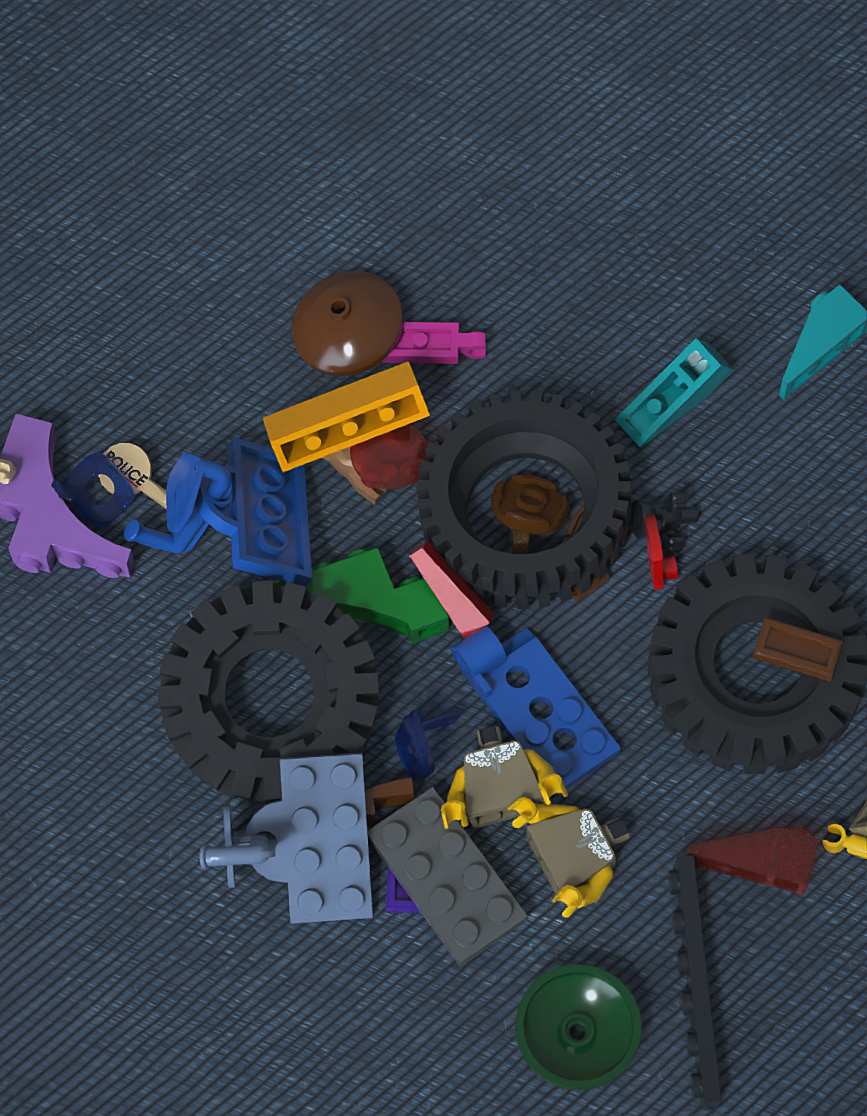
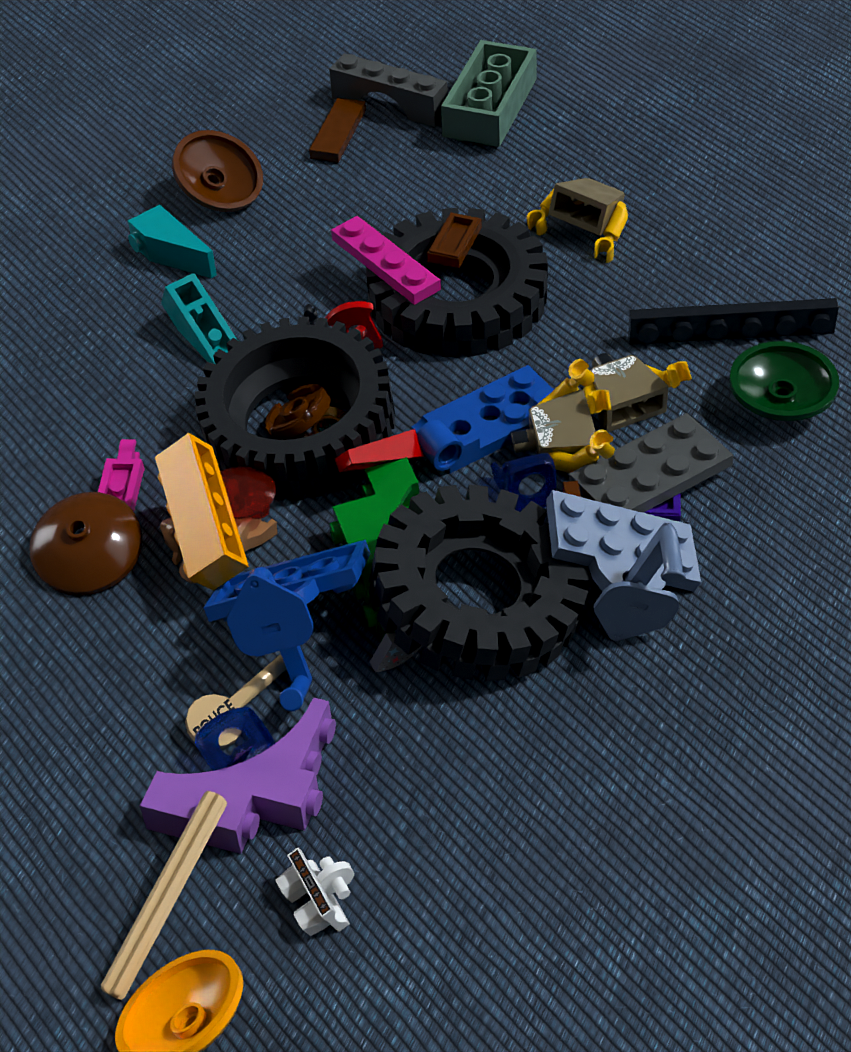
camera: 85 degrees left, 20 degrees down
(757, 572) = (386, 260): none -> dark pink plate
(767, 857) = (624, 279): clear red slope -> none

